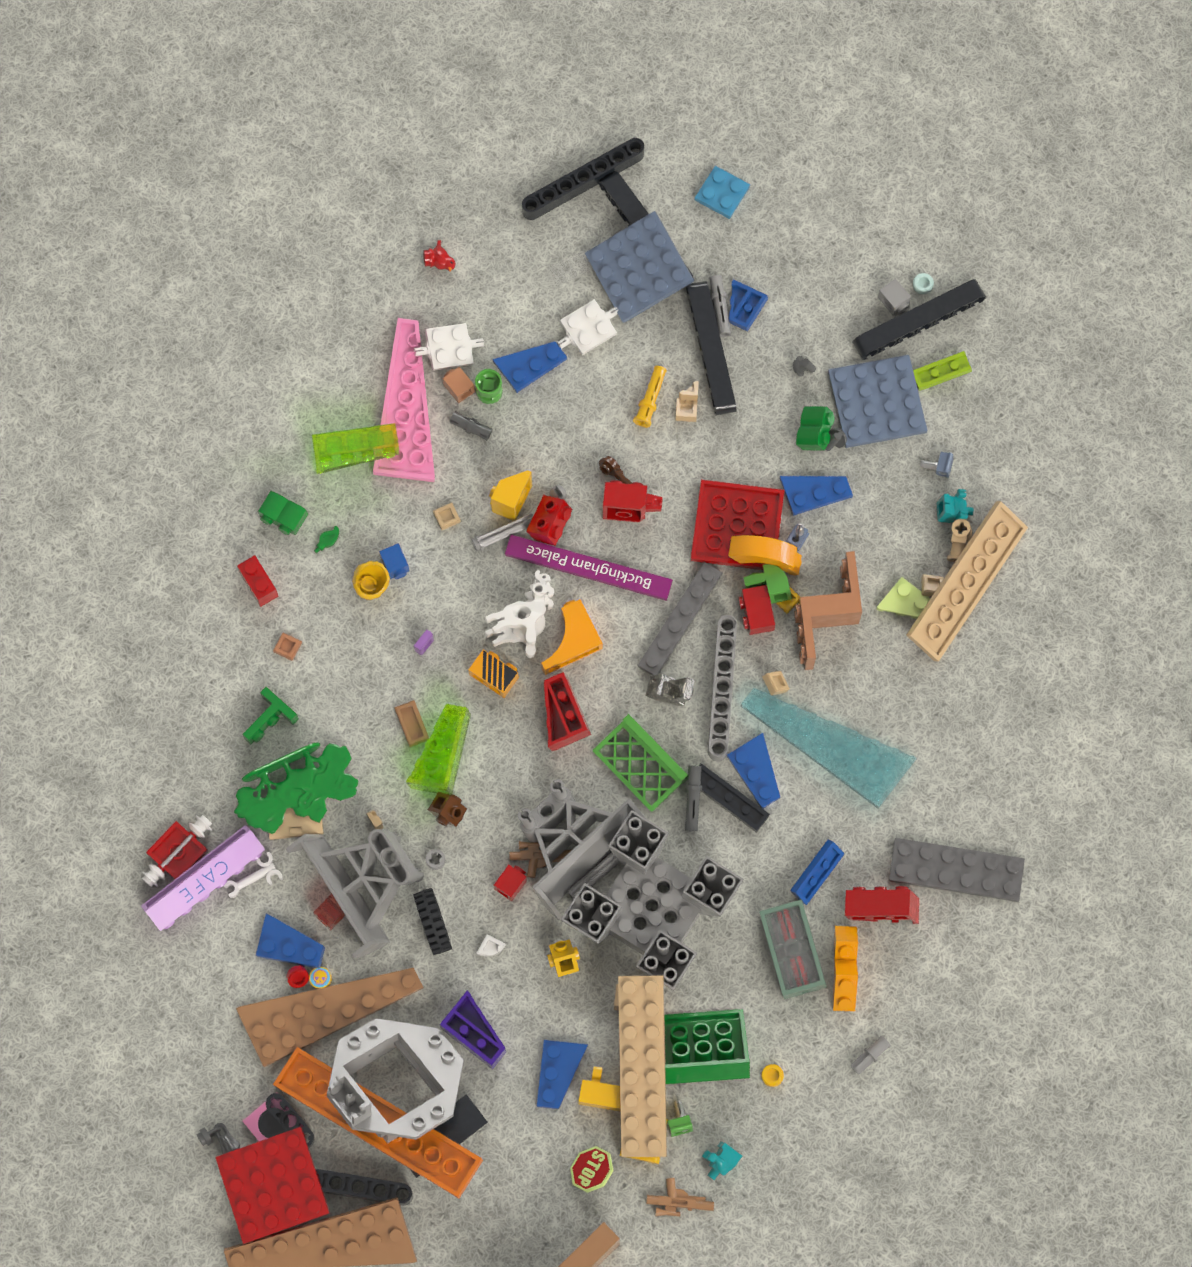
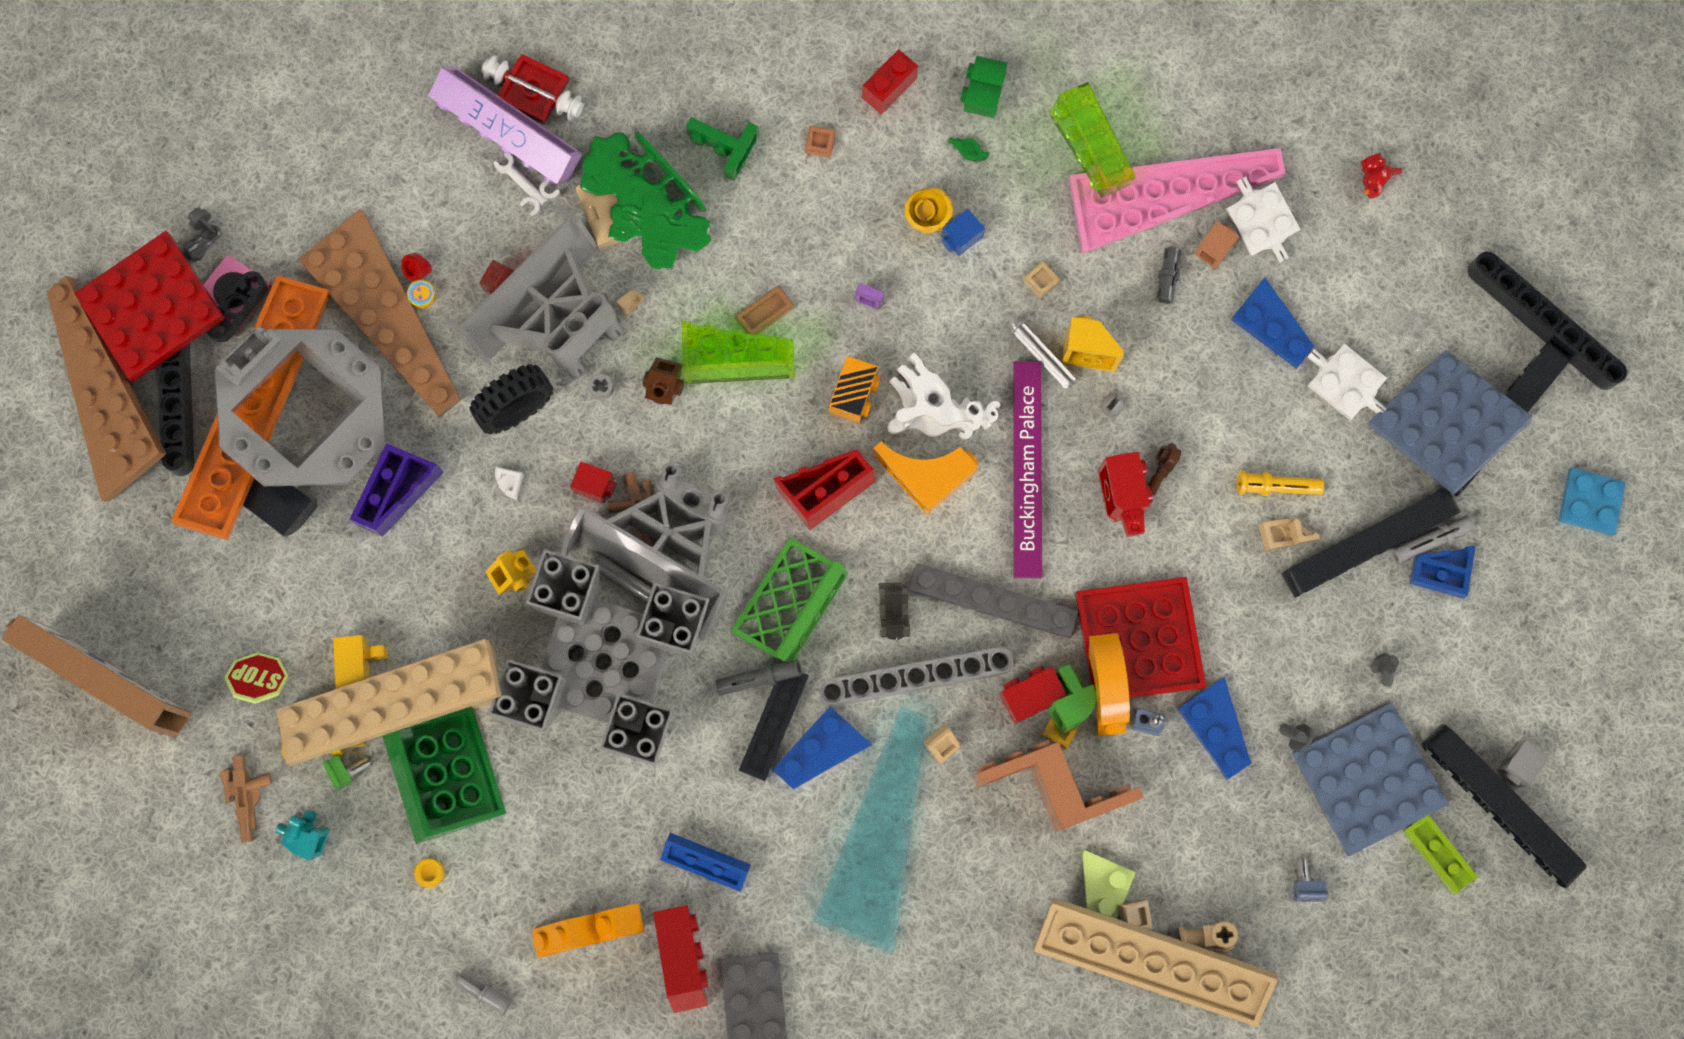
camera: 70 degrees right, 5 degrees up
(288, 945) = (450, 245): blue wing -> none
(488, 386) = (1225, 280): bright green wheel -> none
(549, 520) = (1073, 404): red brick -> none
(558, 1068) = (373, 604): blue wing -> none
(793, 949) = (593, 857): clear brick -> none
(815, 428) = (1303, 704): green brick -> none
(923, 283) = (1556, 798): light aqua tile -> none
(953, 507) = (1251, 918): teal piece -> none

